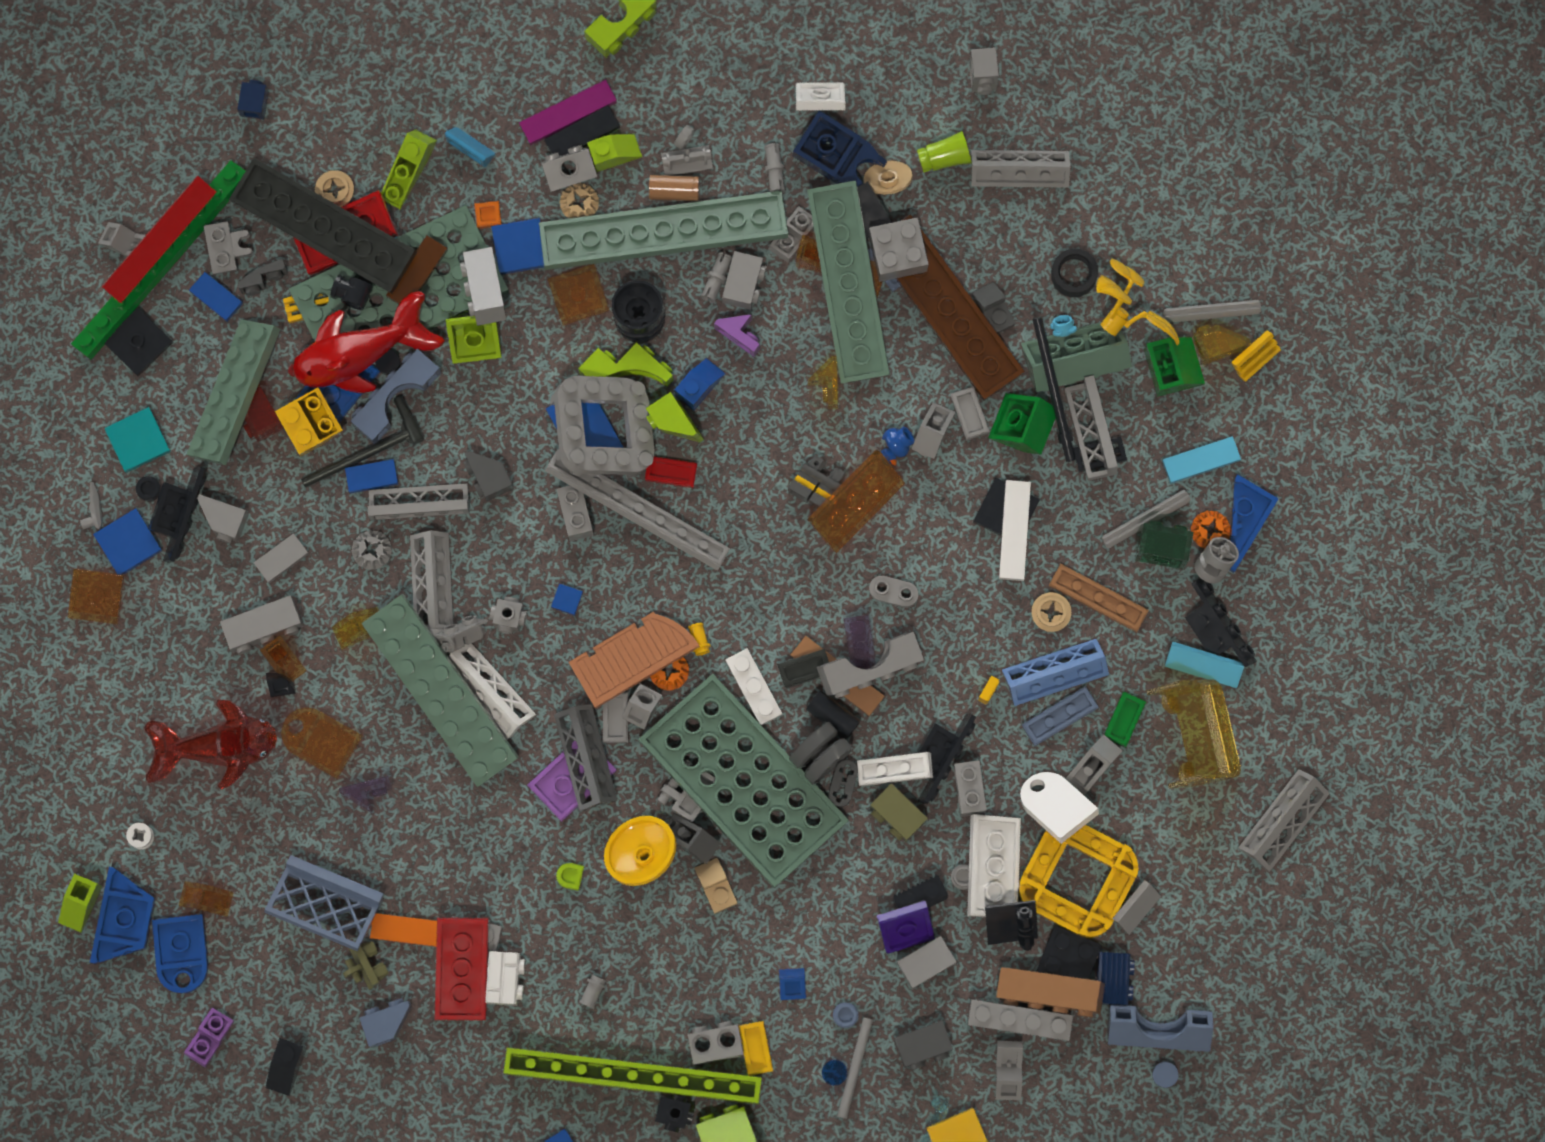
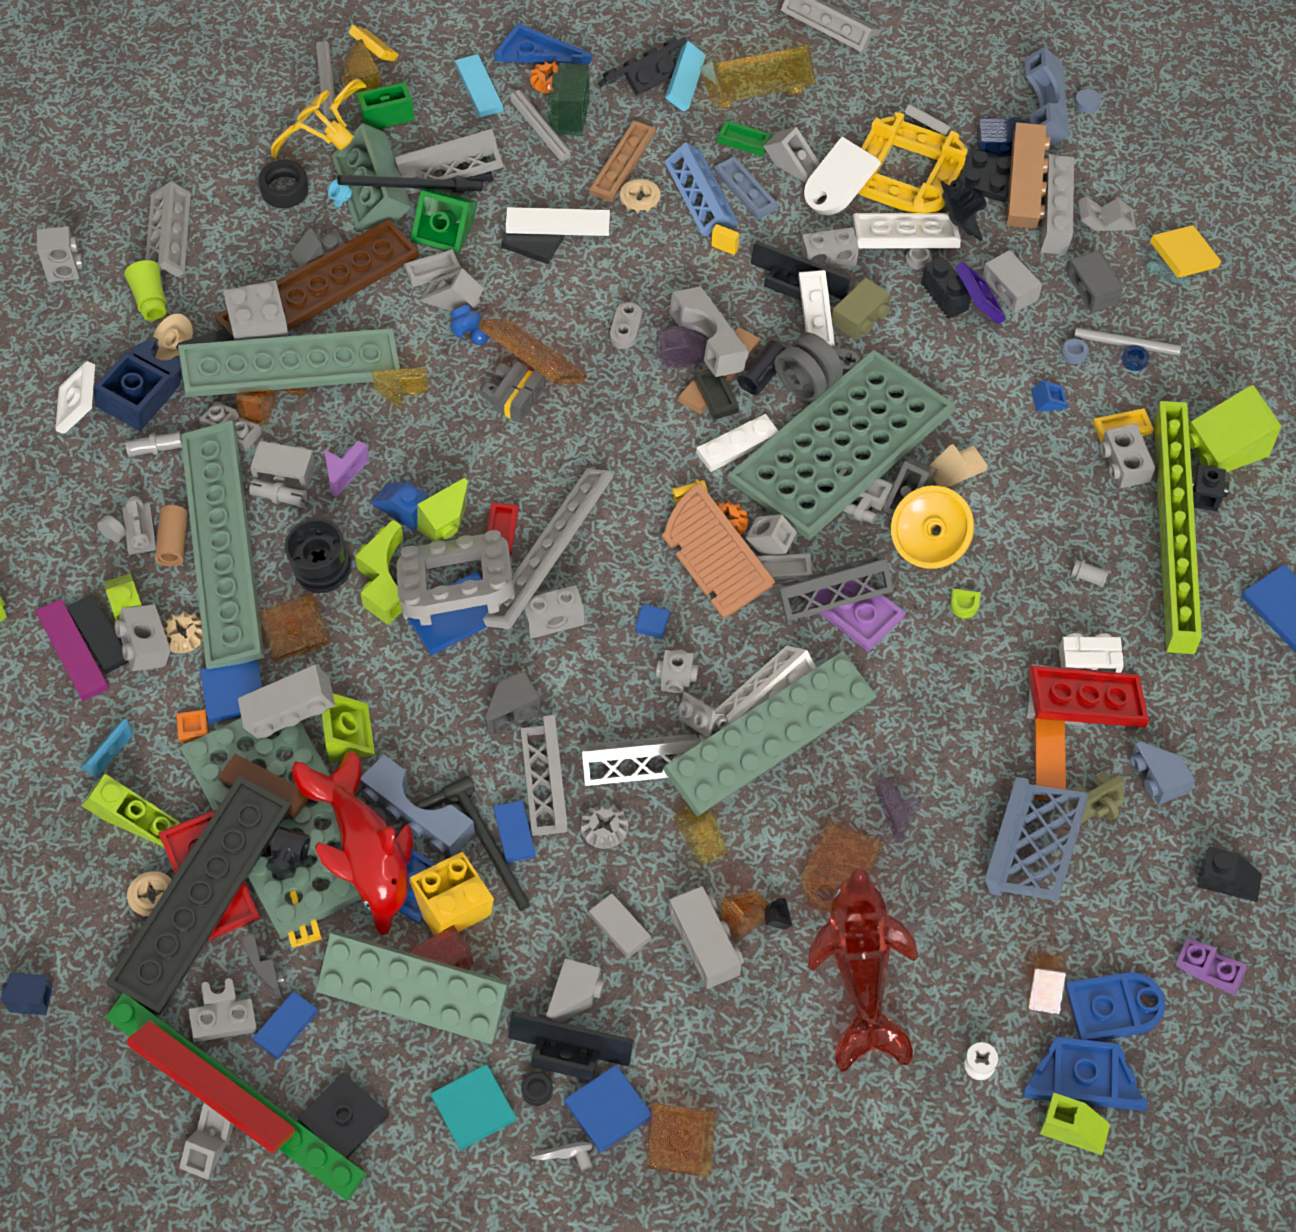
camera: 95 degrees left, 20 degrees down
(1216, 560) = (581, 53): light grey wheel -> none

